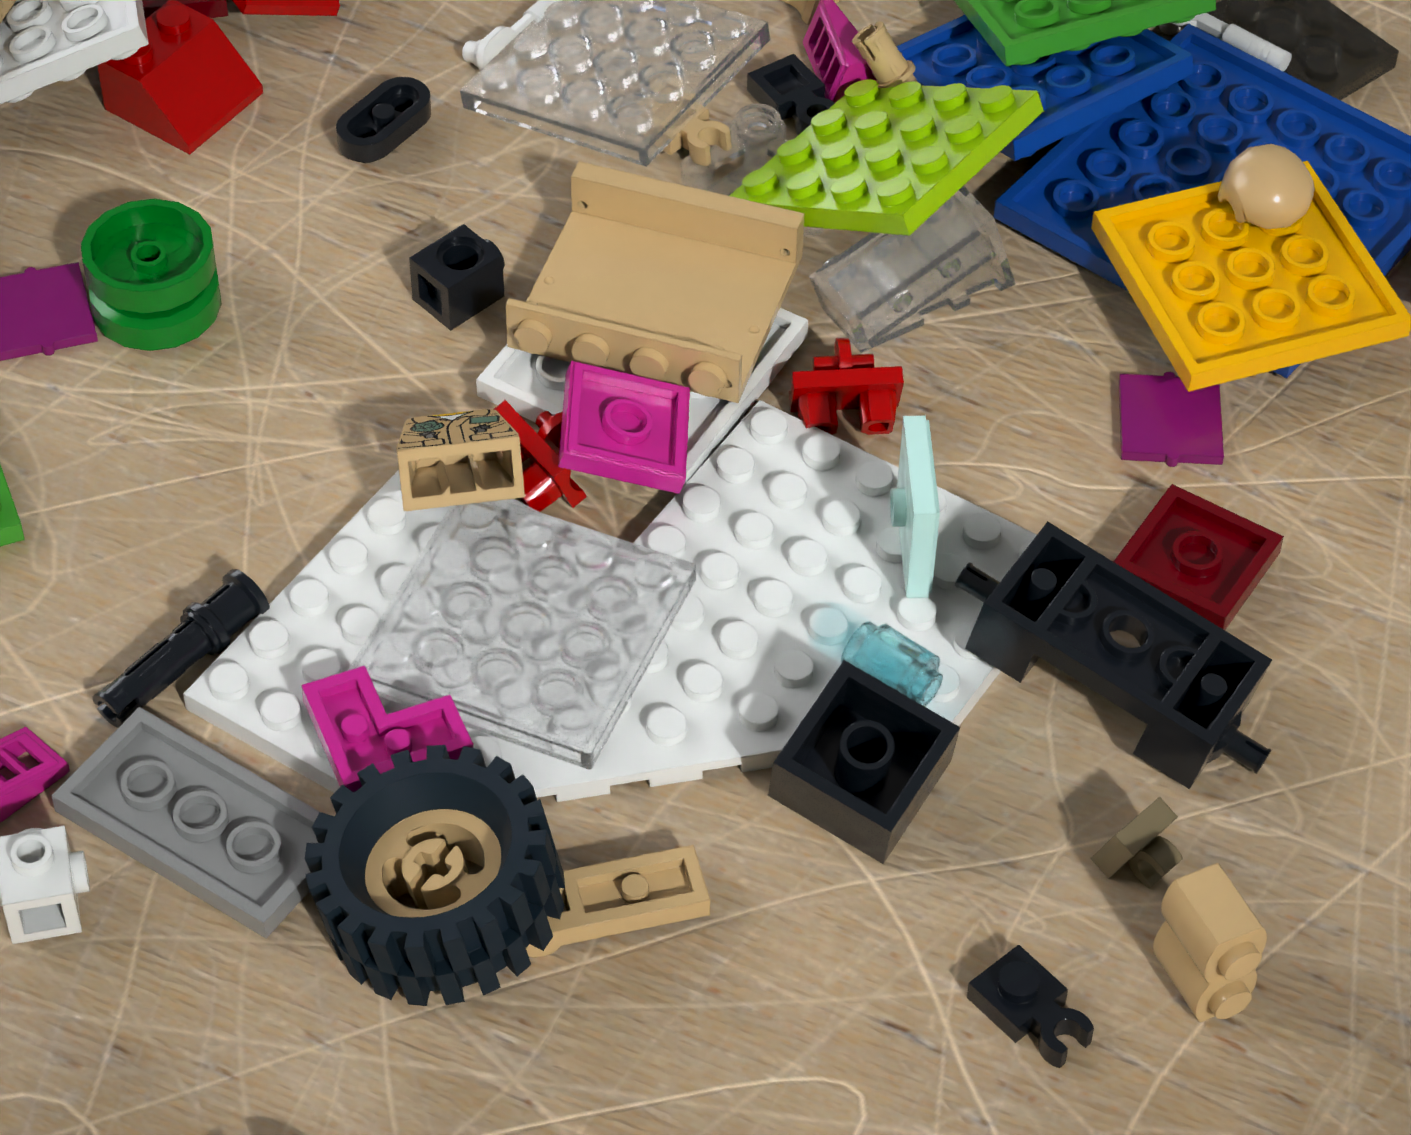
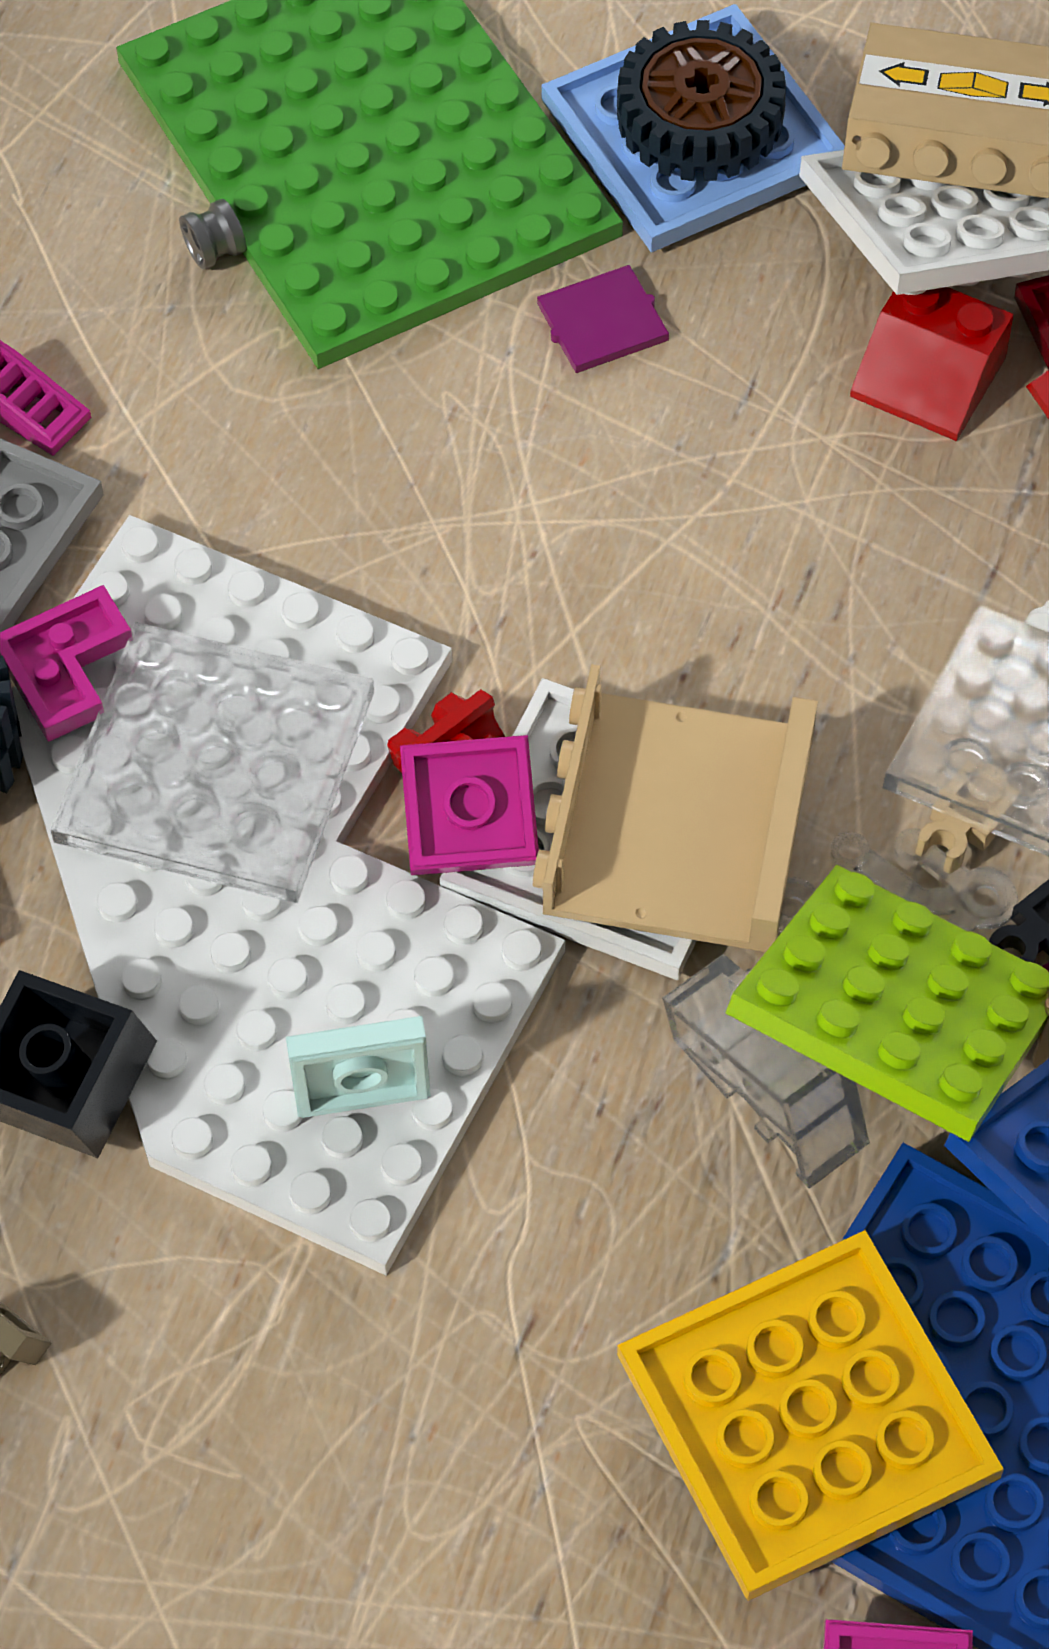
camera: 85 degrees right, 10 degrees up
(151, 274) = (629, 382): green wheel -> none
(202, 631) = (202, 514): black pin -> none
(383, 119) = (919, 545): black plate -> none
(457, 276) = (686, 621): black brick -> none
(459, 460) = (385, 657): tan torso -> none
(844, 384) = (575, 995): red hips -> none
(895, 661) = (177, 1078): clear light blue brick -> none
(1168, 422) = (587, 1359): magenta piece -> none
(1181, 681) = (181, 1357): black brick -> none
(1200, 554) = (395, 1384): dark red plate -> none
(1267, 187) = (920, 1412): tan hair -> none

